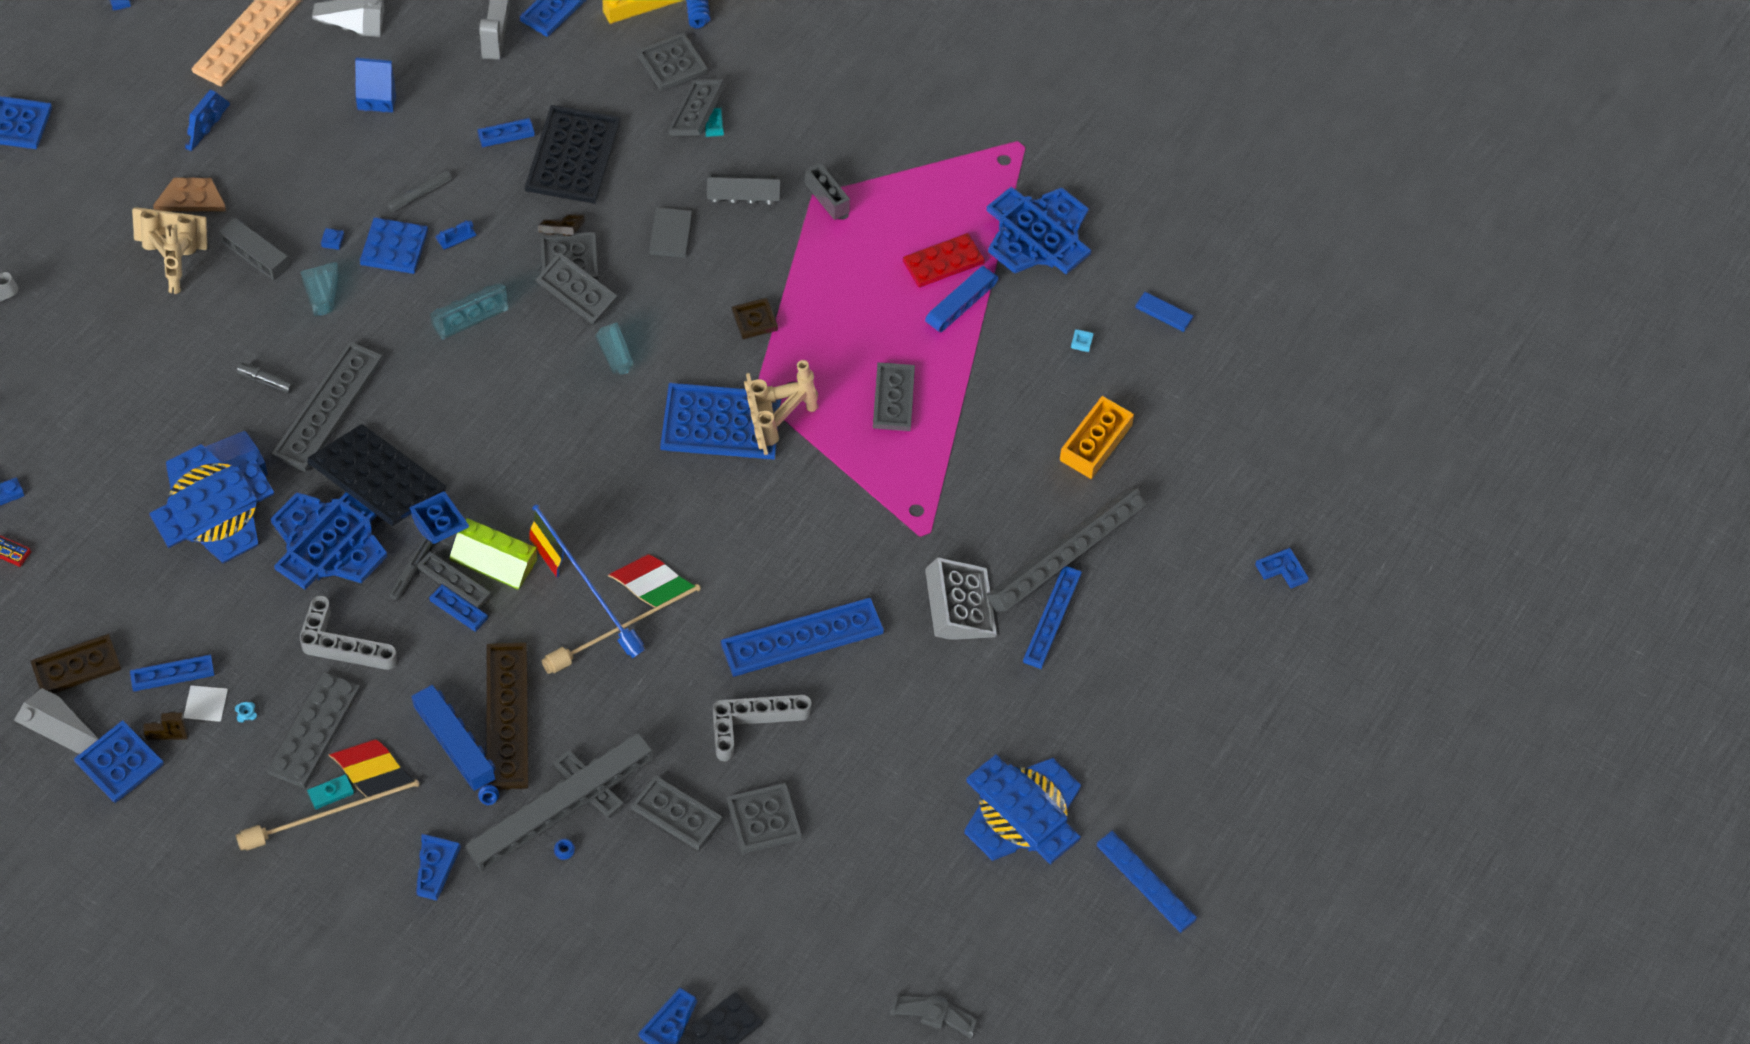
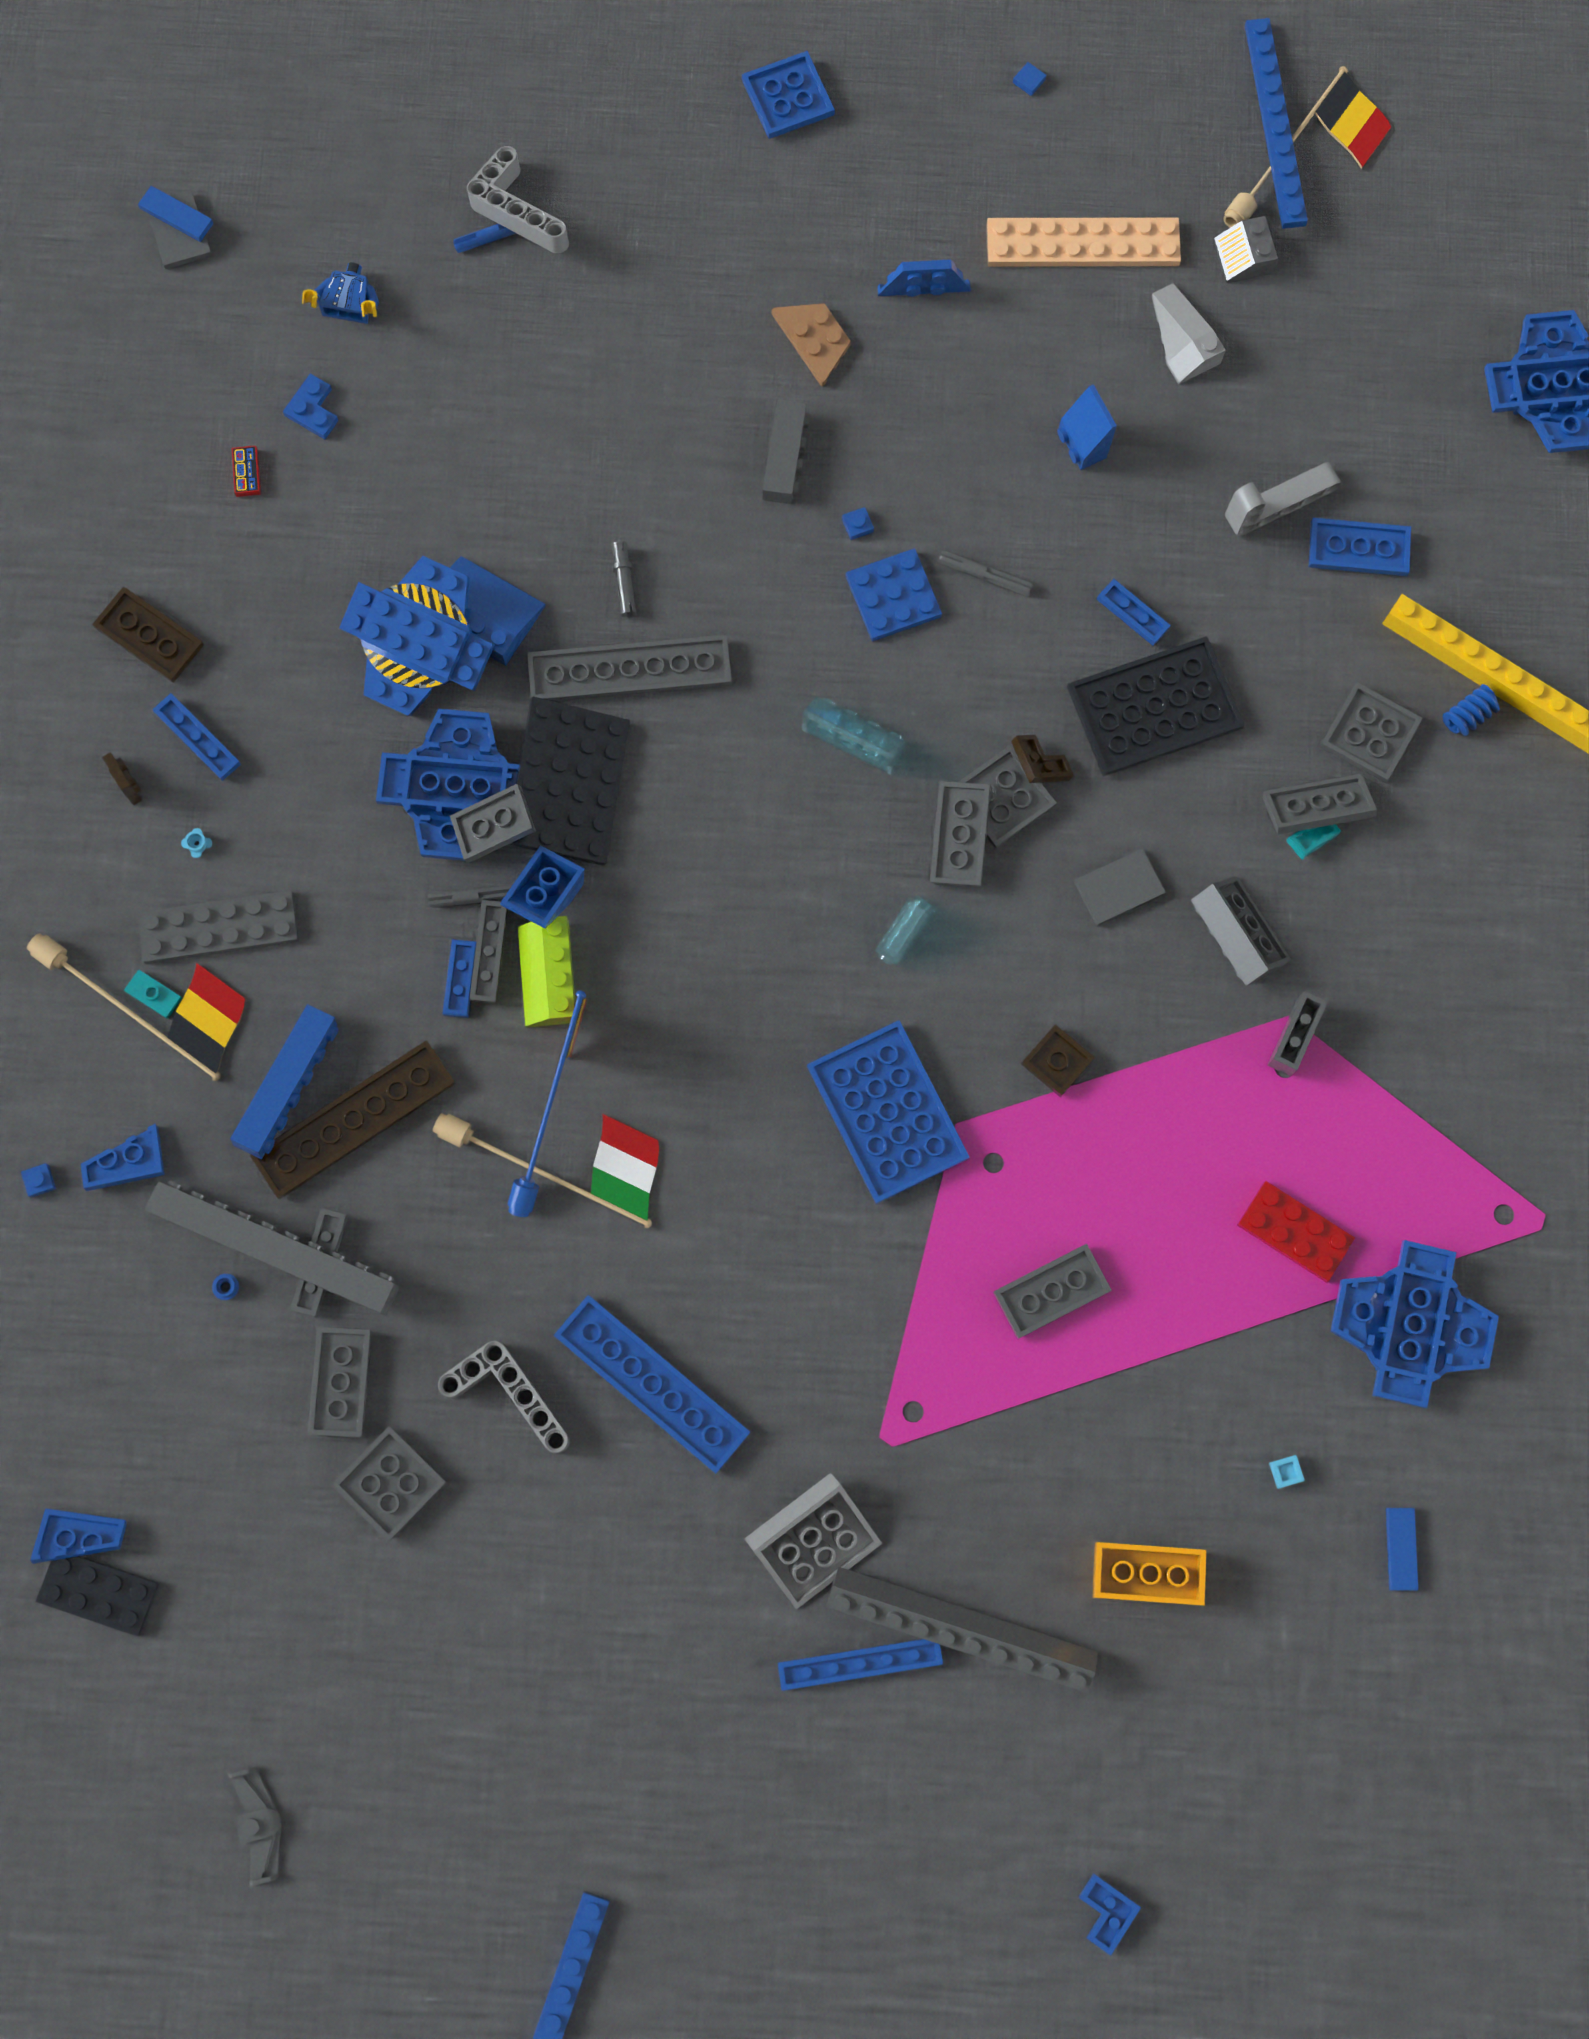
camera: 60 degrees right, 20 degrees up
(55, 720) = (63, 659): light grey wedge -> none
(118, 761) = (58, 757): blue plate -> none
(173, 237) = (749, 366): tan plate -> none
(205, 703) = (186, 794): white sticker -> none
(321, 287) = (779, 557): clear light blue slope -> none
(341, 643) = (332, 884): light grey beam -> none
(376, 520) = (492, 823): none -> dark grey plate
(406, 928) = (38, 1180): none -> blue plate
(456, 235) = (951, 652): blue hinge -> none
(488, 799) = (241, 1163): blue plate -> none
(761, 399) = (917, 1153): tan plate -> none
(961, 299) = (1249, 1288): blue beam -> none
(1022, 809) = (578, 1776): blue plate -> none

